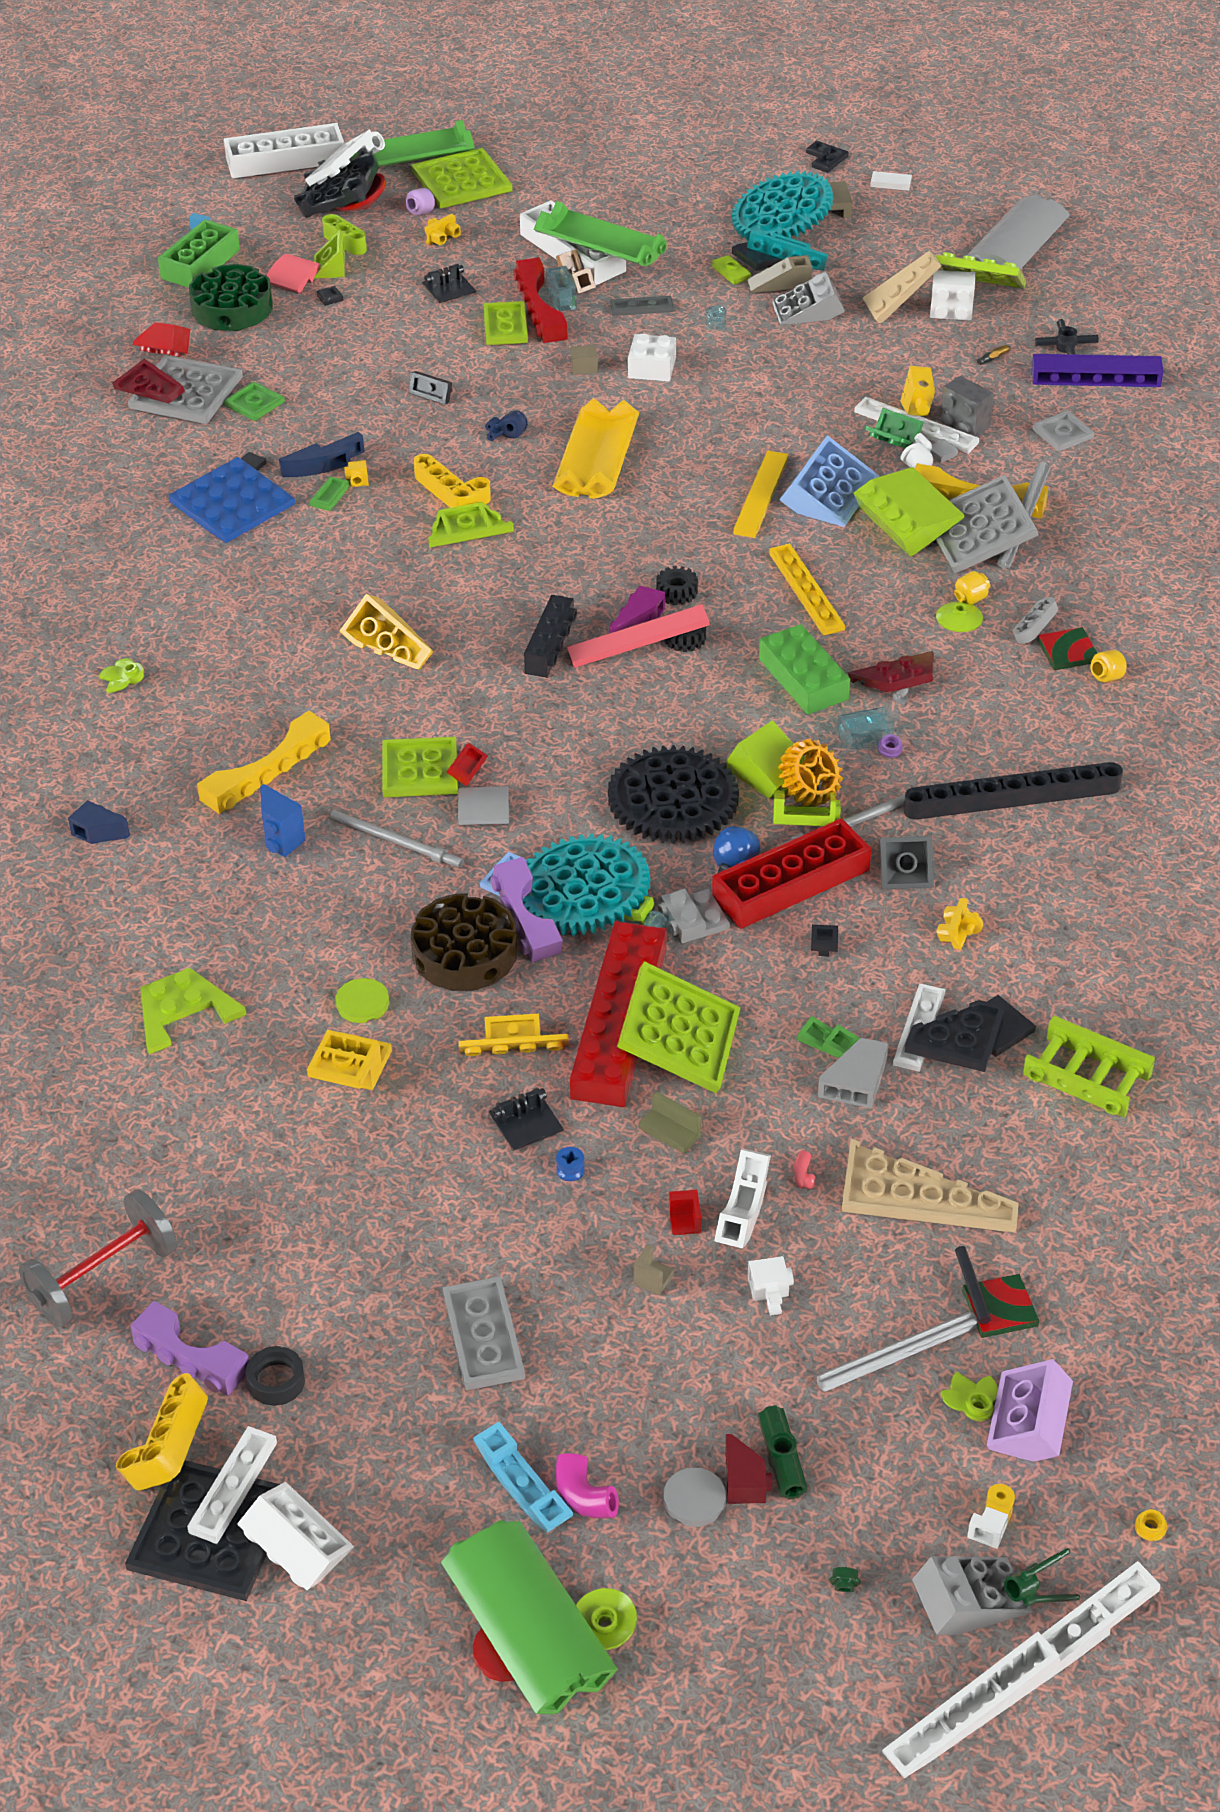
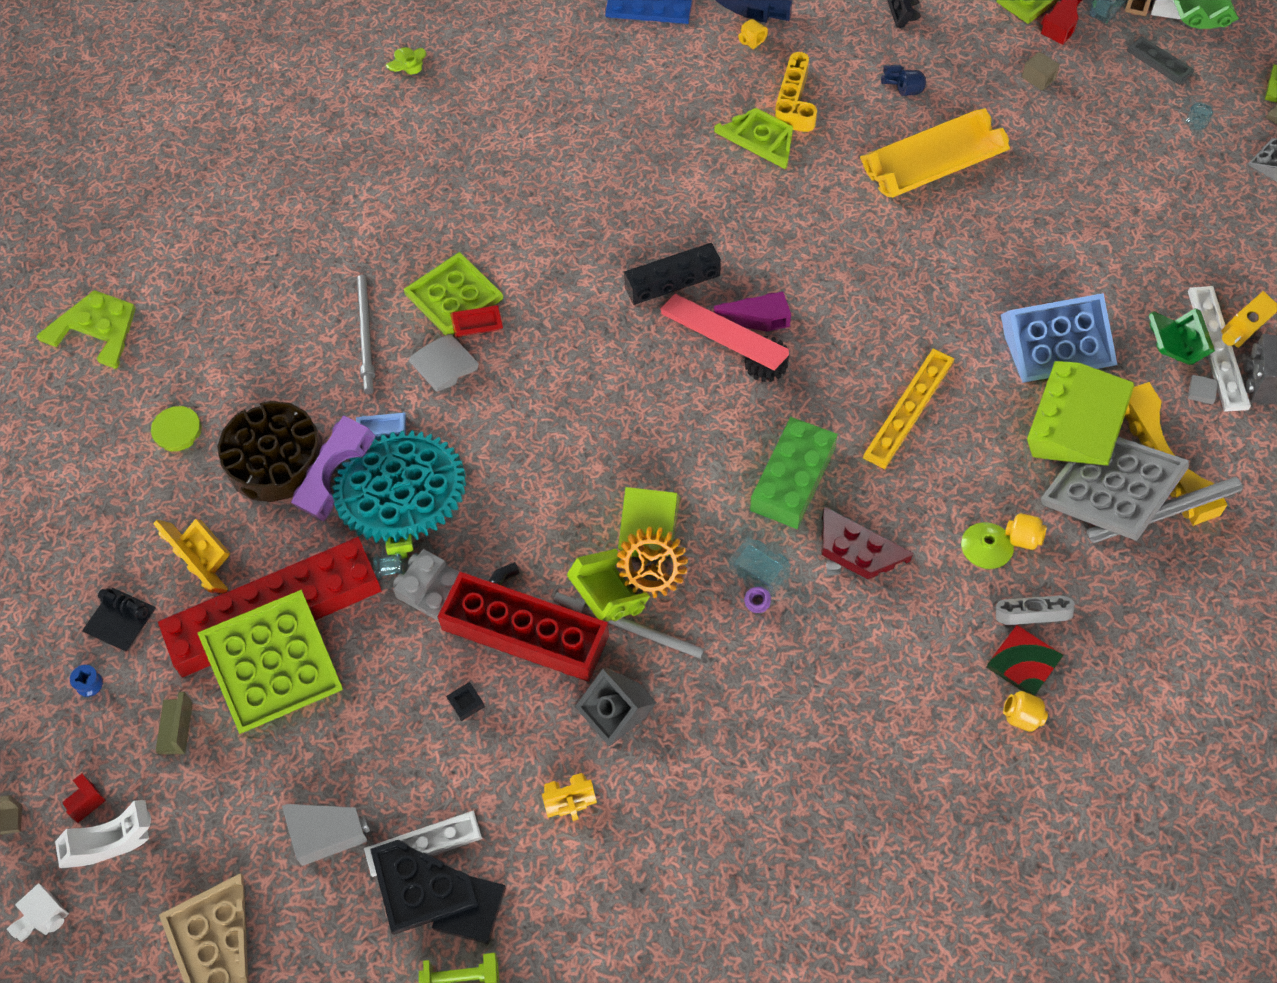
camera: 55 degrees right, 15 degrees up
(97, 824) = (236, 153): dark blue slope -> none
(227, 787) = (424, 203): yellow arch -> none
(281, 821) = (308, 251): blue slope -> none
(330, 493) = (717, 34): bright green tile -> none
(349, 1060) = (87, 463): yellow bracket -> none
(382, 629) = (585, 164): yellow wedge -> none
(652, 357) = (1092, 110): white brick -> none
(674, 786) = (558, 518): black gear -> none
(677, 577) = (817, 327): black tyre -> none
(735, 846) = (527, 567): blue plant -> none
(761, 494) = (1001, 296): yellow tile -> none
(800, 1170) = (185, 855): coral arm -> none
(826, 1039) = (357, 779): bright green slope -> none
(918, 452) = (1170, 376): white piece -> none
(1012, 790) = (785, 747): black beam -> none

